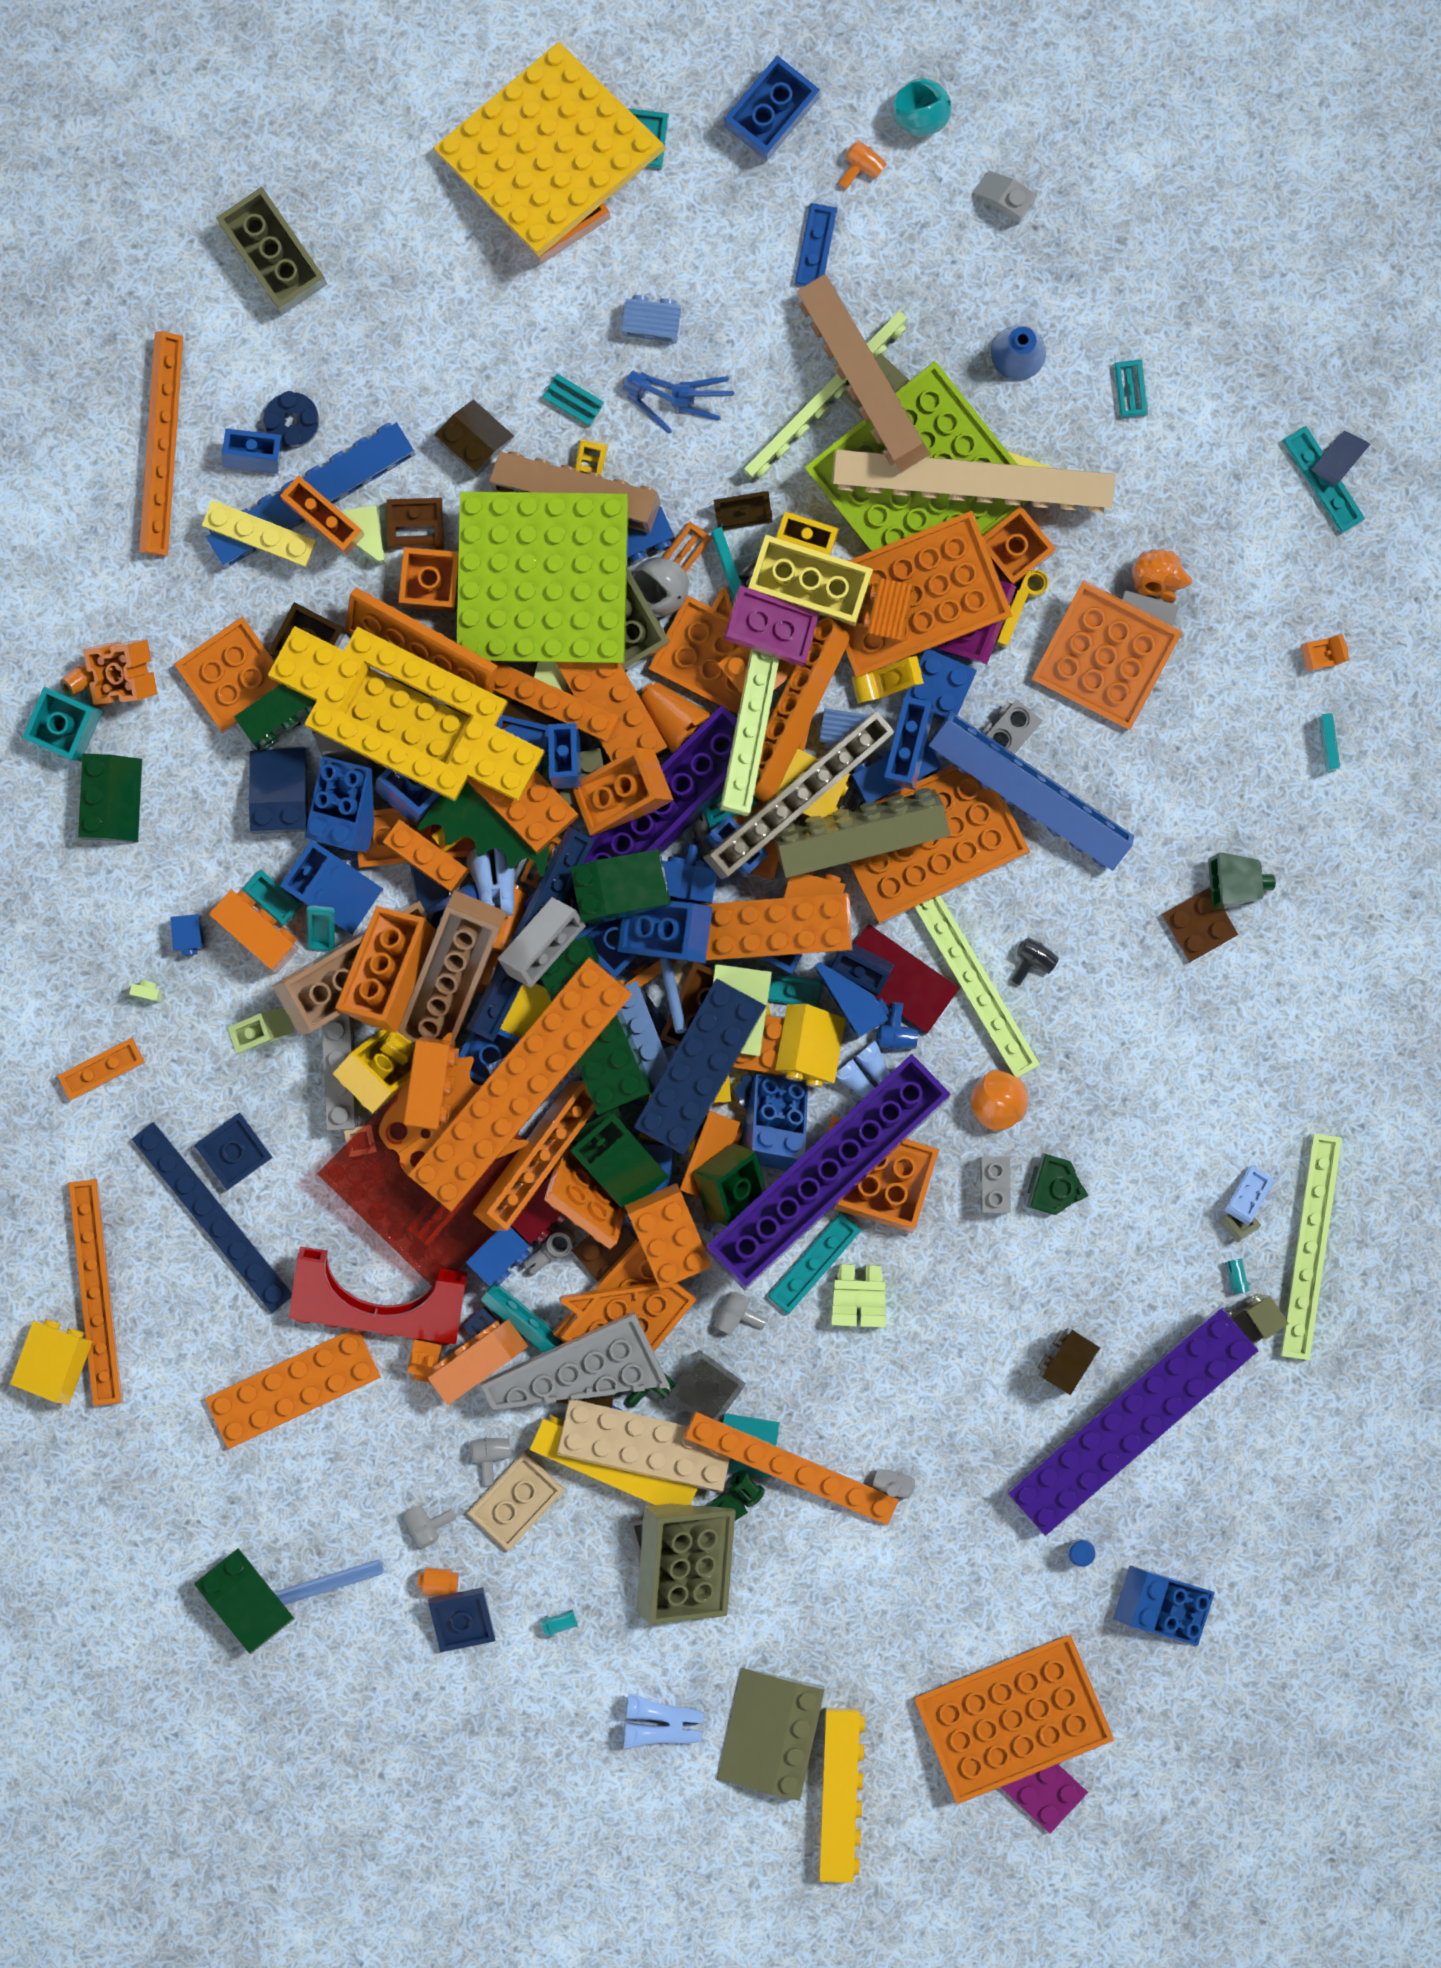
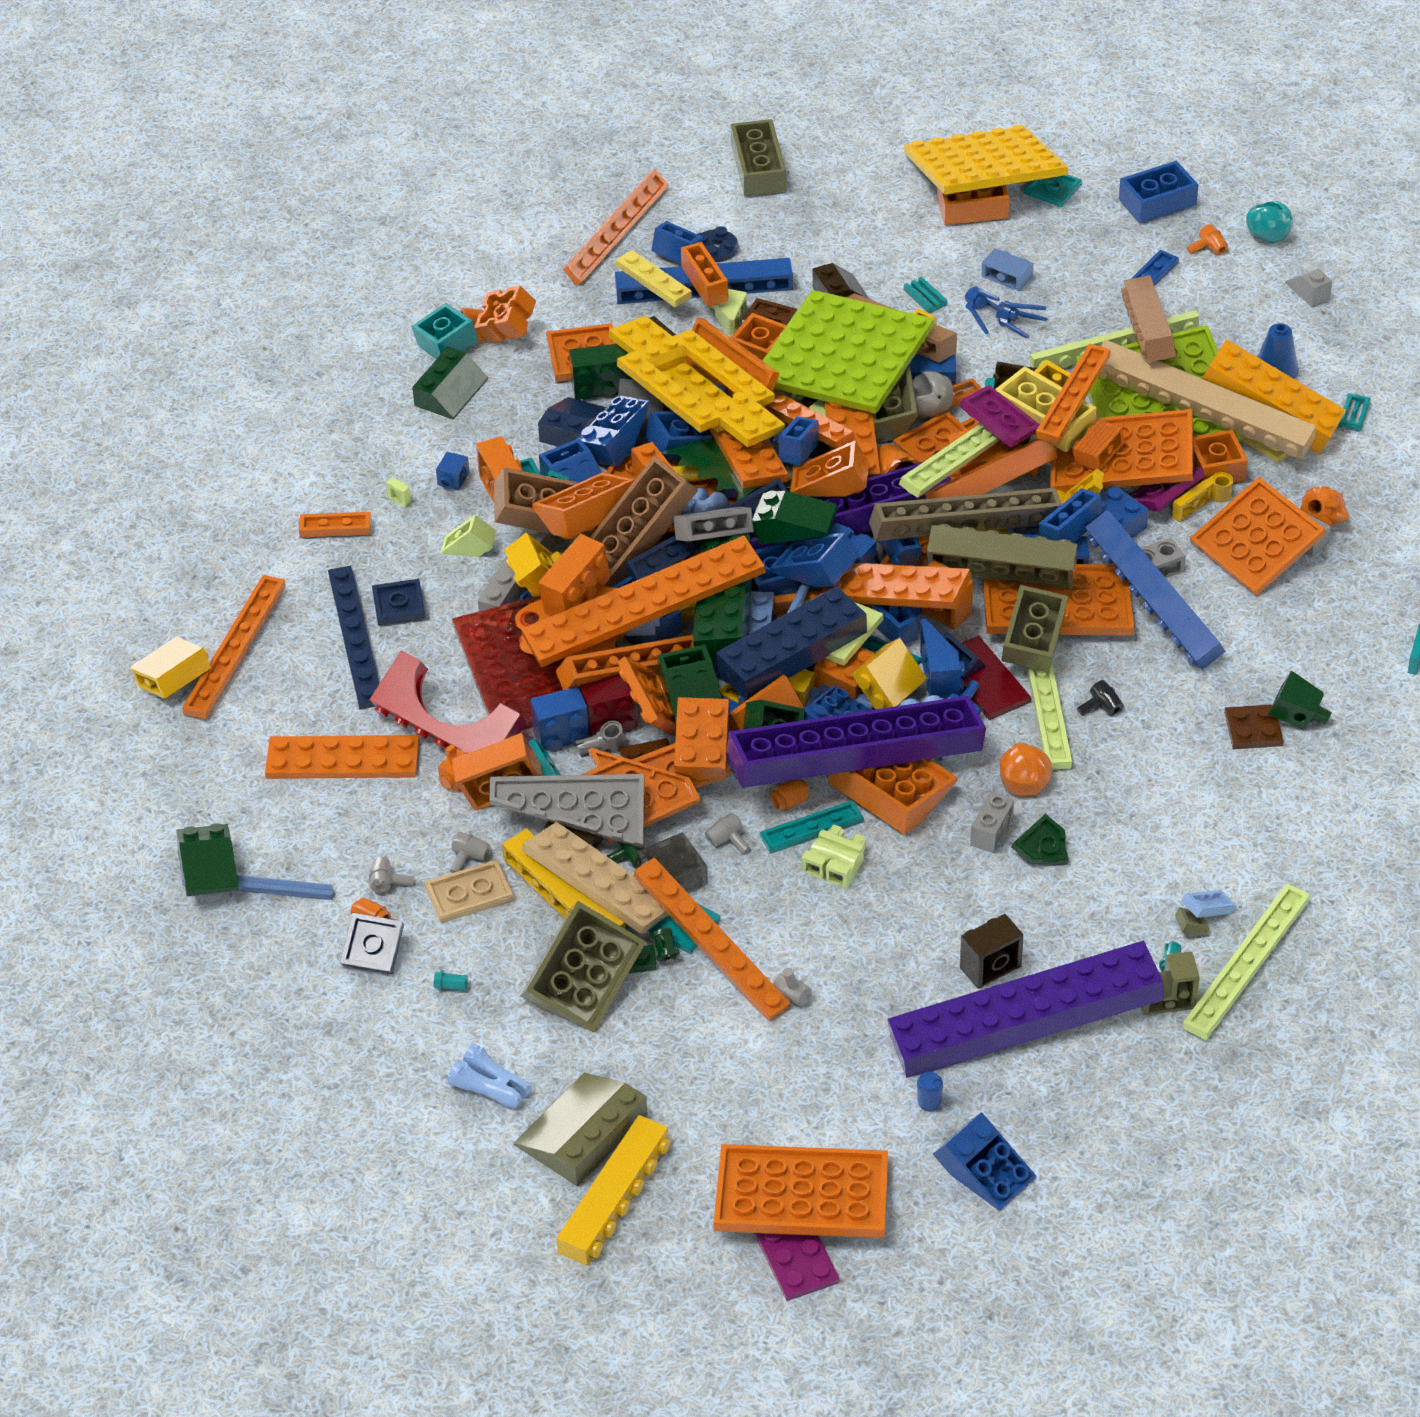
camera: 25 degrees right, 40 degrees down
(842, 566) = (1073, 393): none -> orange plate
(936, 917) = (1034, 628): none -> olive brick
(1045, 435) = (1255, 379): none -> light orange brick

